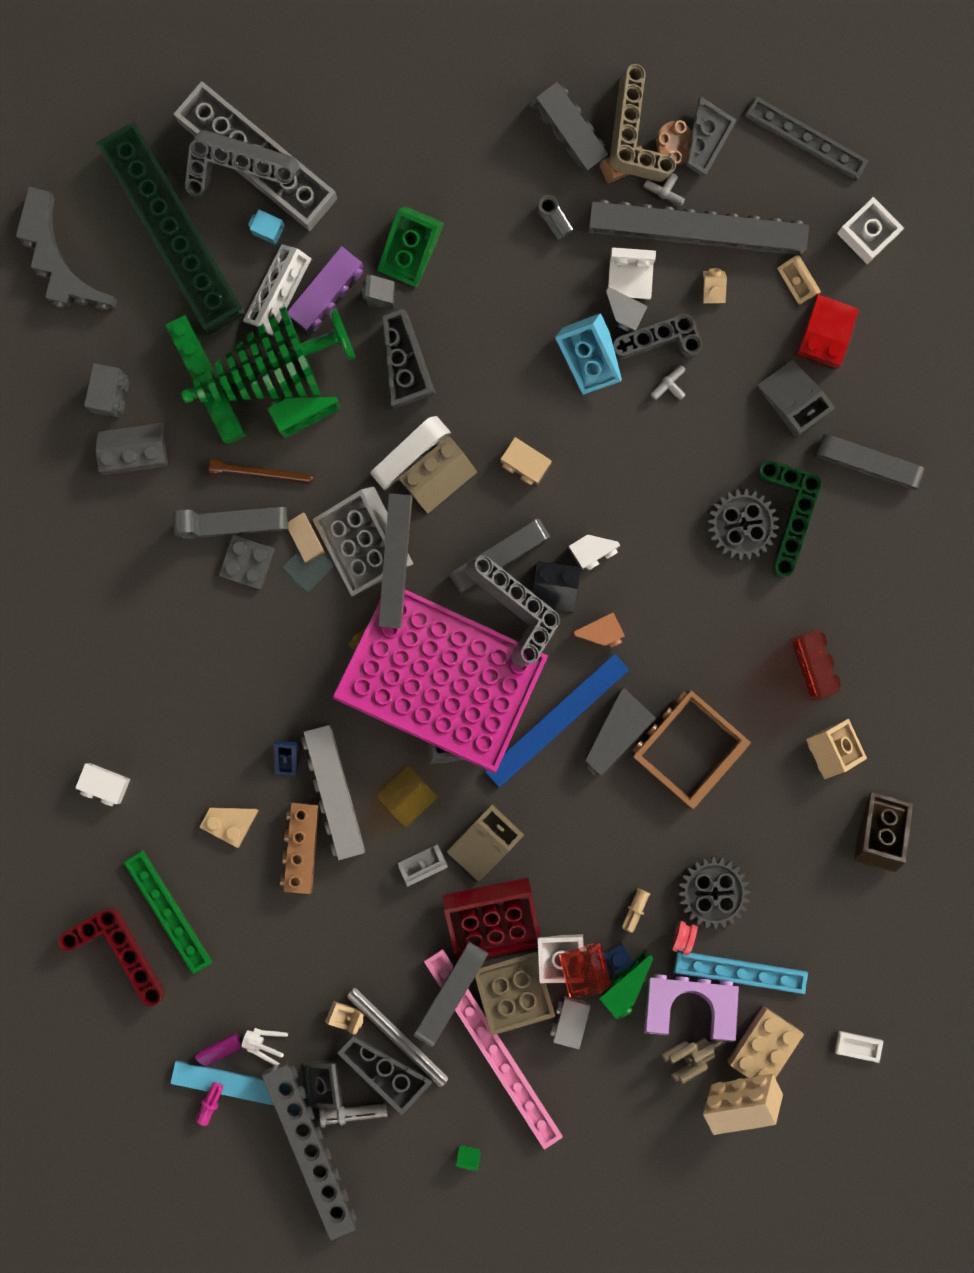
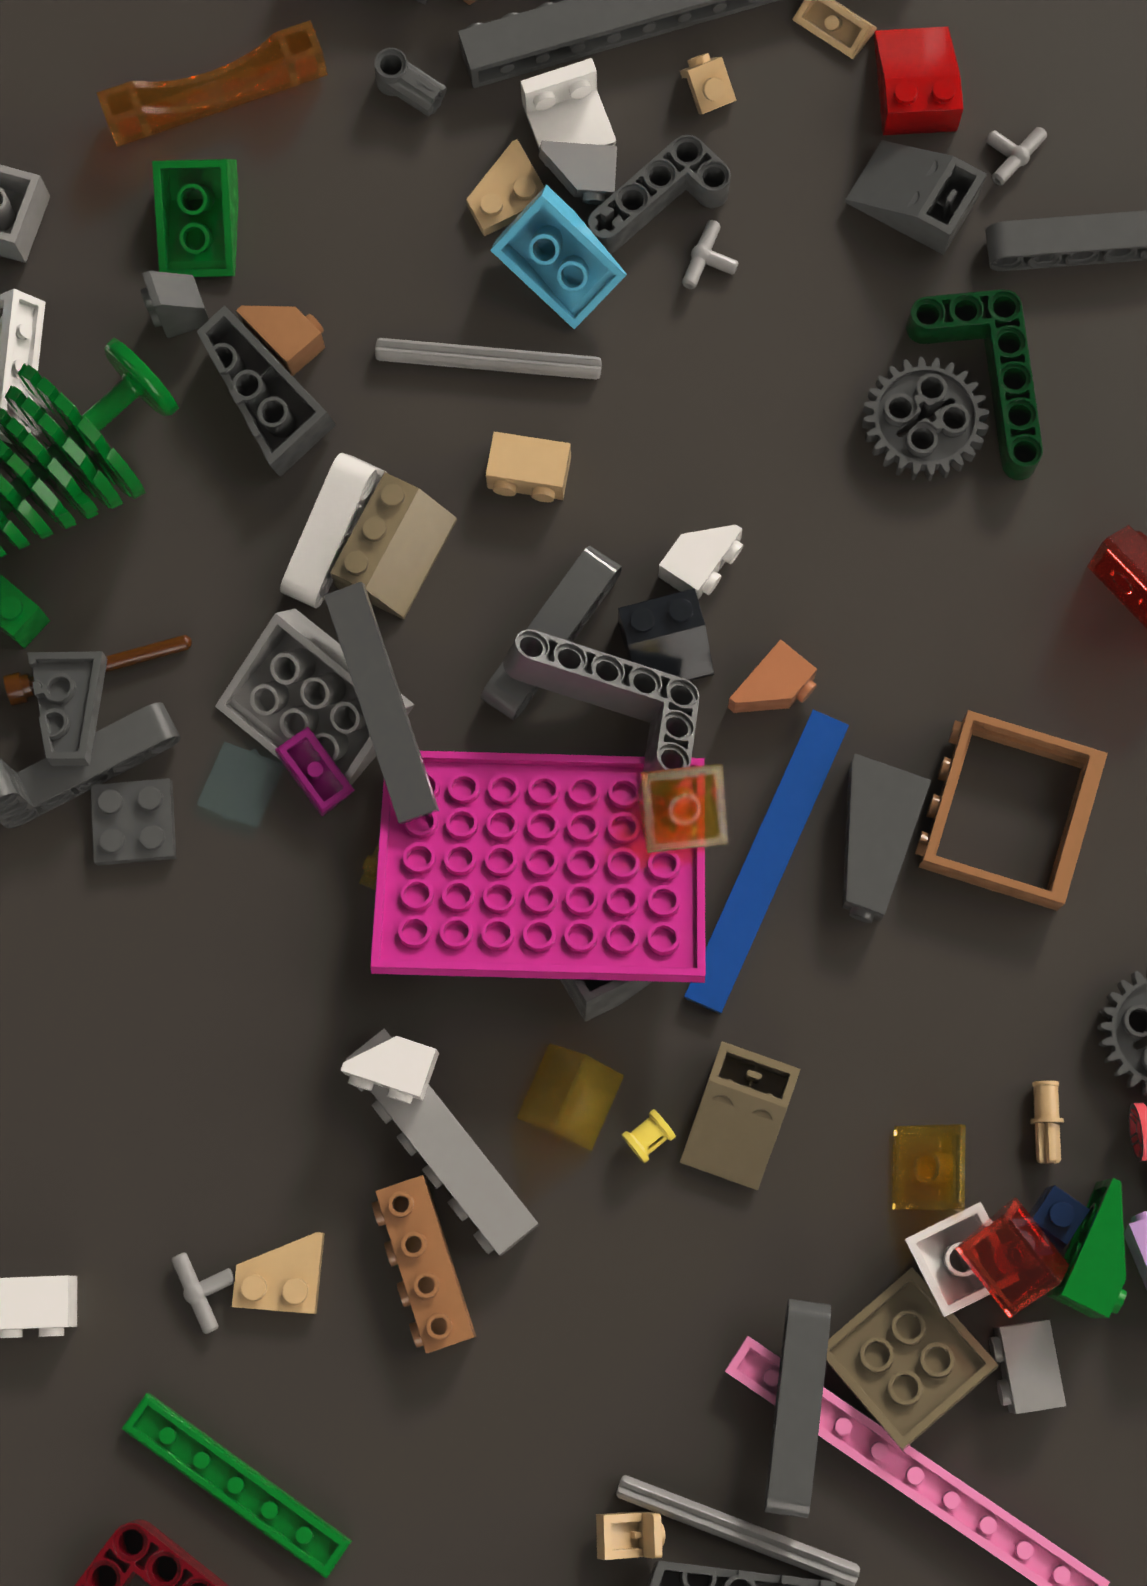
camera: 20 degrees left, 10 degrees down
(186, 812) = (196, 1292): none -> light grey piece
(239, 486) = (68, 702): none -> dark grey wing
(286, 757) = (333, 1118): dark blue slope -> none
(297, 413) = (124, 537): green slope -> none
(305, 537) = (215, 739): tan slope -> none
(325, 290) = (90, 322): medium lavender brick -> none
(327, 748) = (395, 1065): none -> white slope
(348, 577) = (314, 771): none -> magenta slope
(422, 865) = (648, 1202): light grey hinge -> none
(429, 333) = (284, 333): none -> medium nougat slope
(436, 832) = (648, 1136): none -> light yellow bush
(482, 177) = (279, 63): none -> clear orange arch
(493, 918) = (812, 1241): dark red slope -> none
(523, 681) = (683, 808): none -> clear yellow slope
(530, 391) = (488, 358): none -> light grey axle
(566, 908) = (929, 1168): none -> clear yellow slope
(580, 301) = (504, 190): none -> tan wing
(860, 398) = (1017, 154): none -> light grey piece

